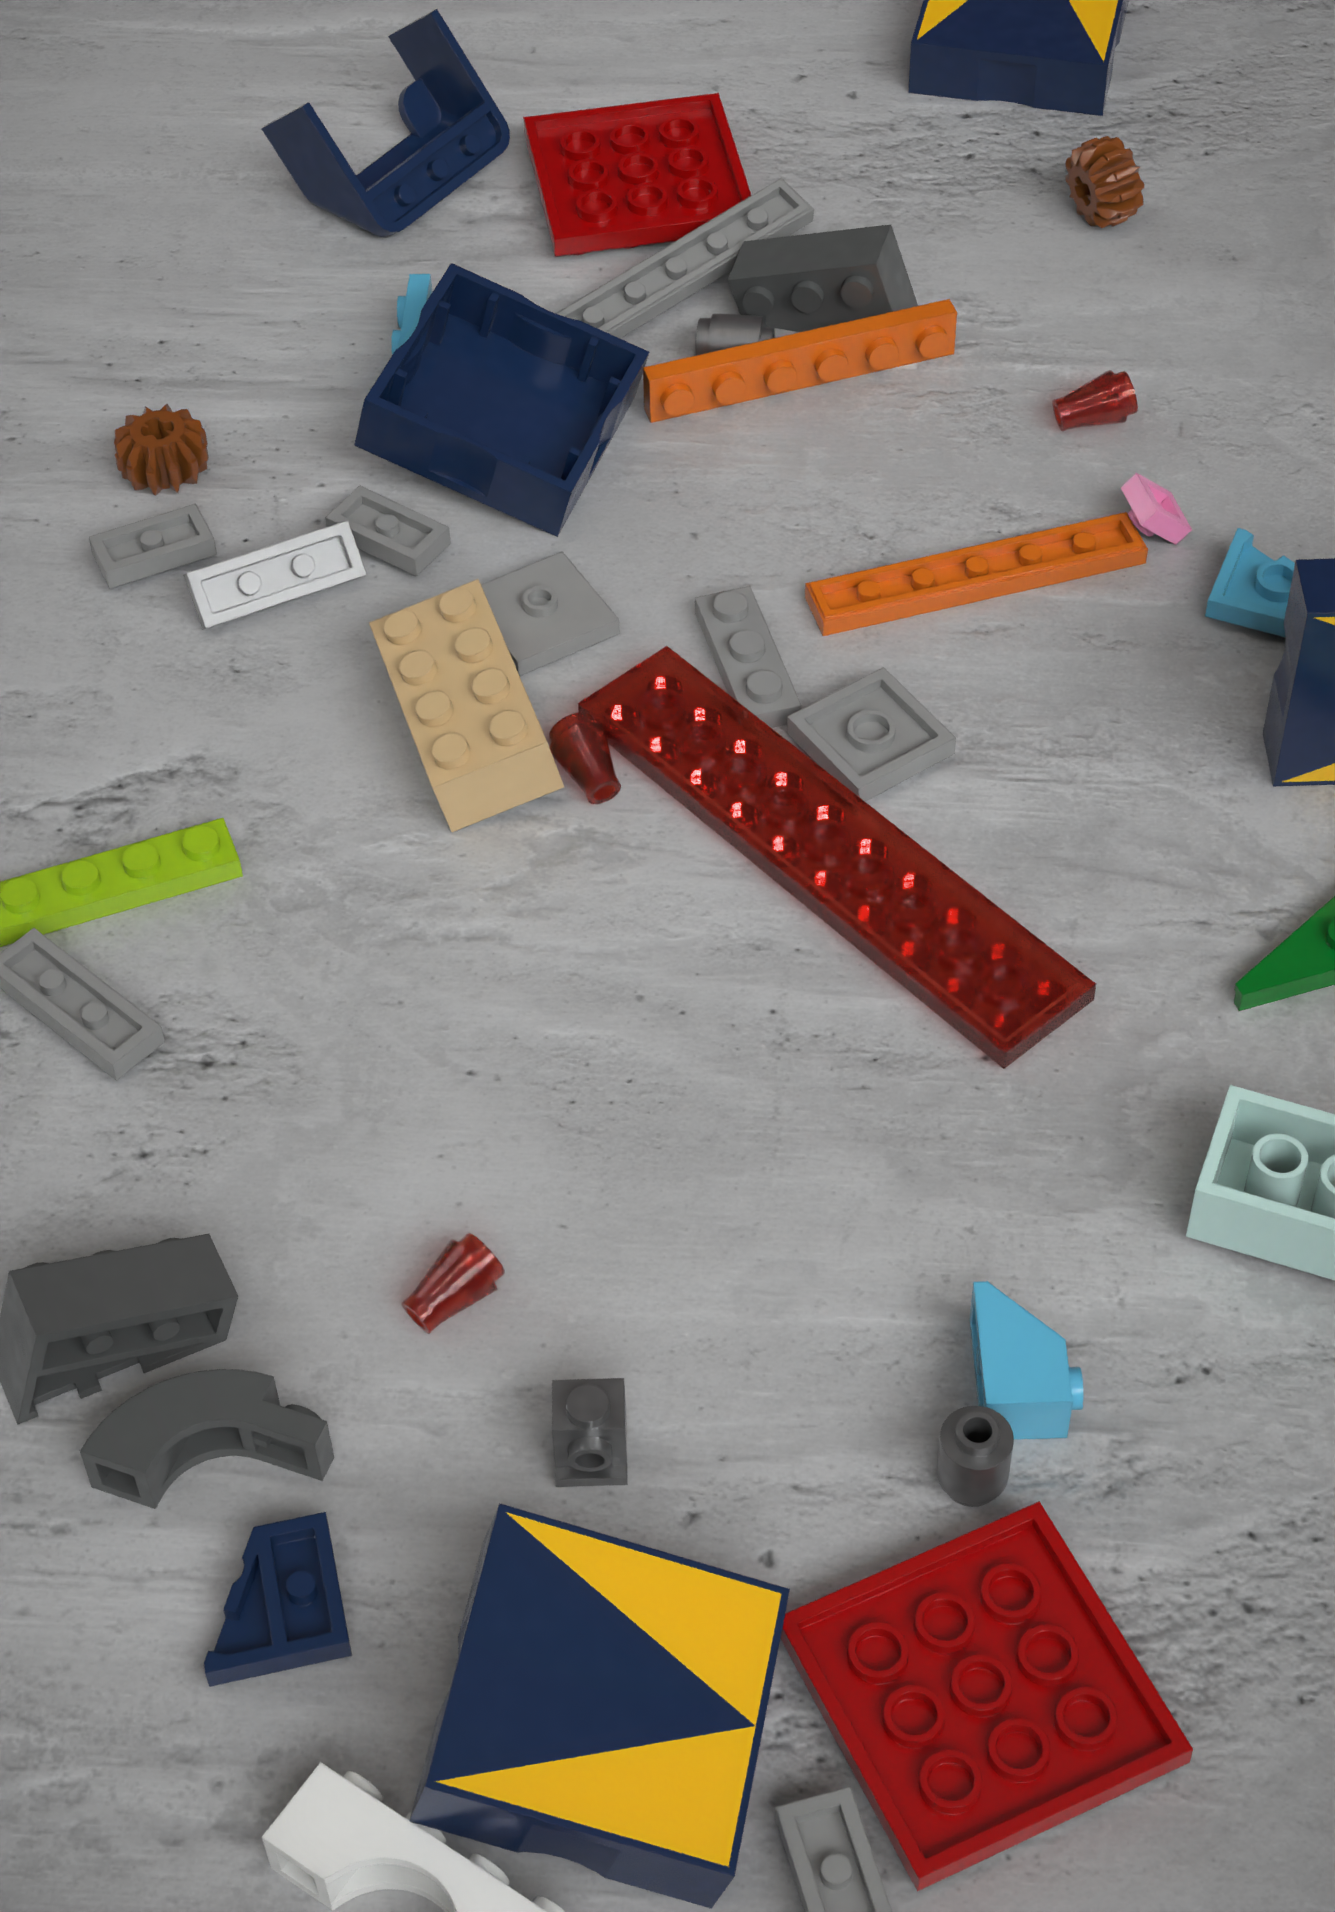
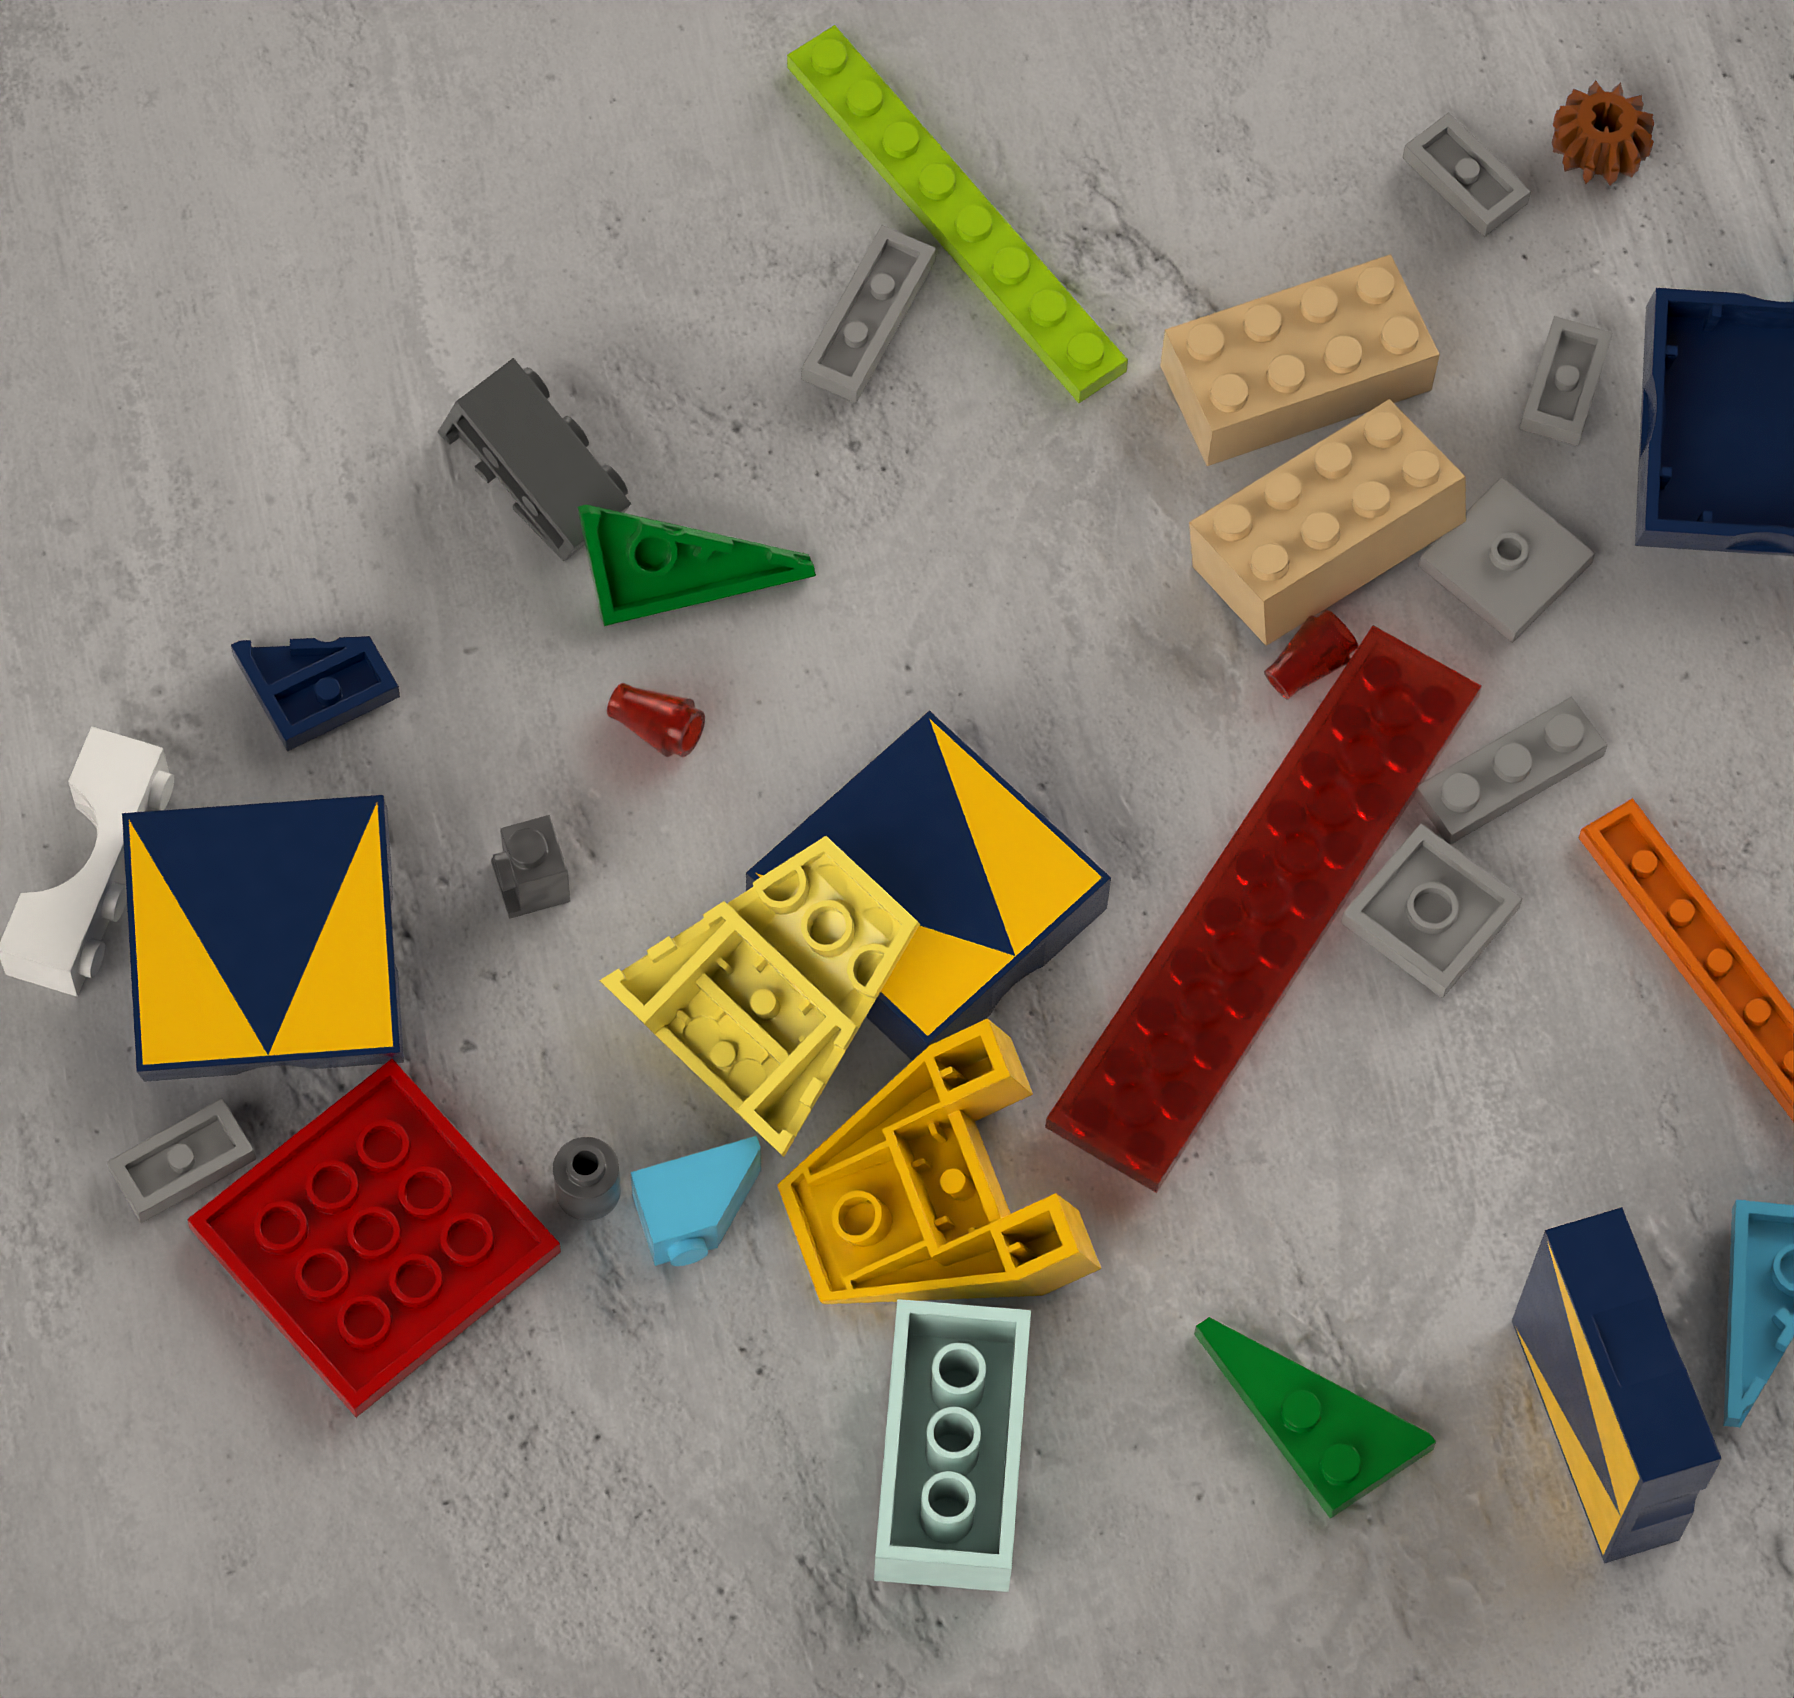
camera: 70 degrees right, 15 degrees up
(199, 1419) = (448, 543): dark grey arch -> none
(274, 574) = (1463, 299): plate -> none
(285, 1232) = (660, 566): none -> green wing
(286, 694) = (1298, 359): none -> tan brick
(735, 1094) = (969, 863): none -> dark blue tile
(824, 1224) = (772, 985): none -> light yellow wedge
(1058, 1195) = (911, 1200): none -> yellow wedge

